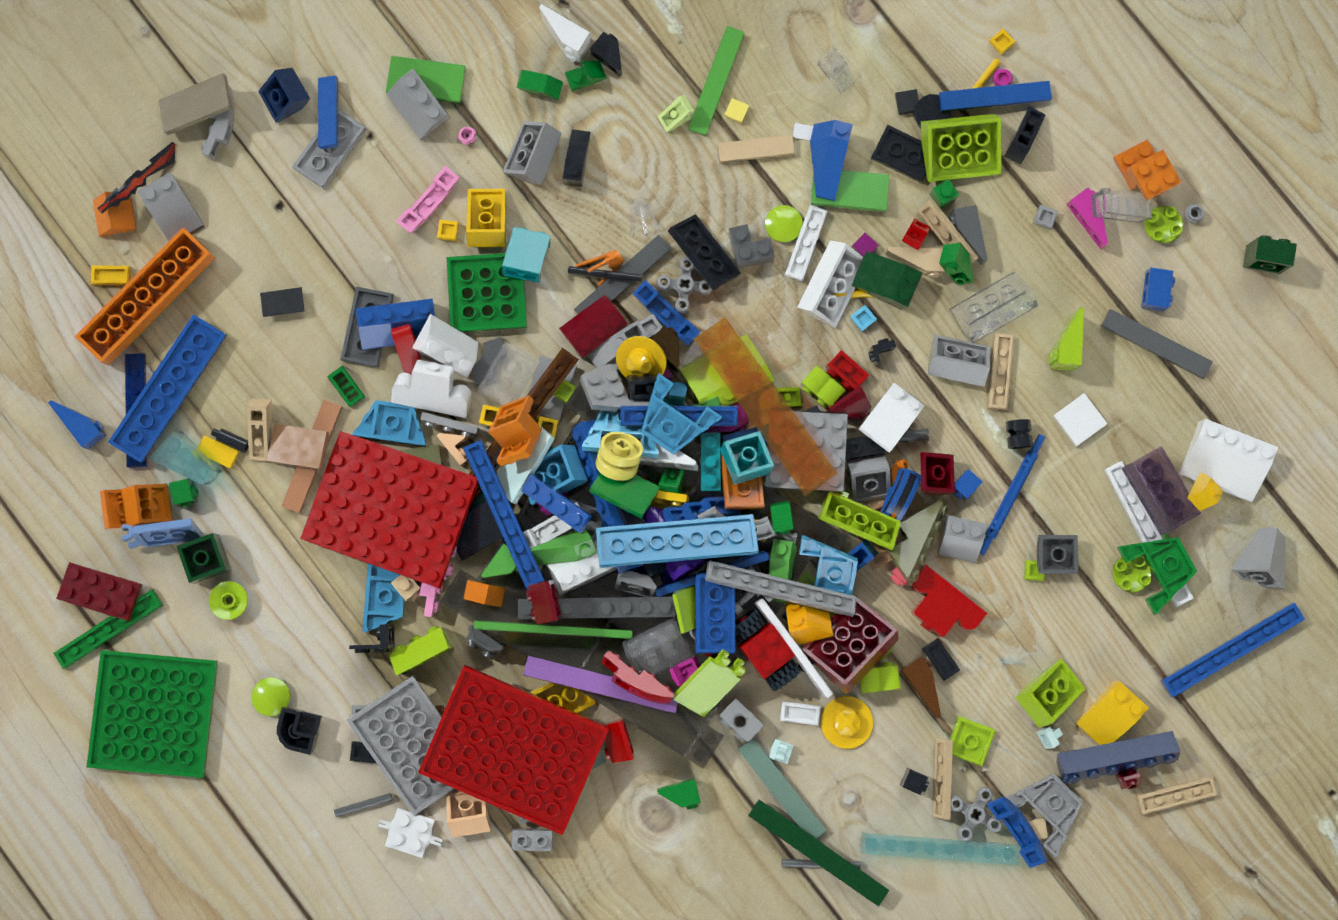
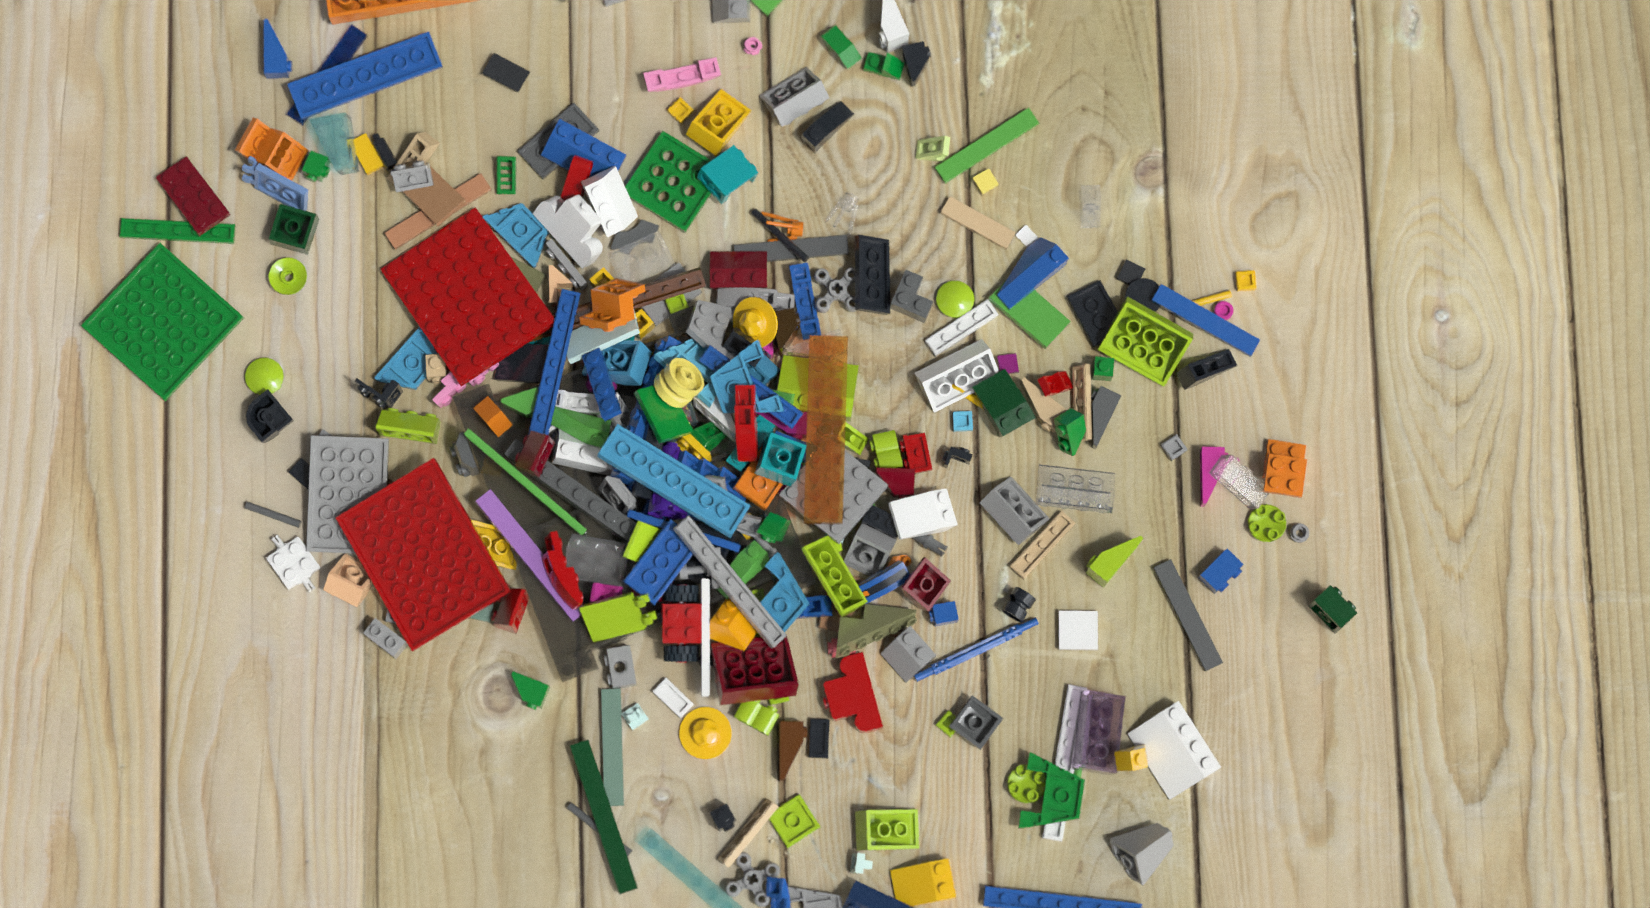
camera: 30 degrees right, 5 degrees down
(269, 444) = (412, 176): none -> light grey bracket
(698, 448) = (746, 422): none -> red slope

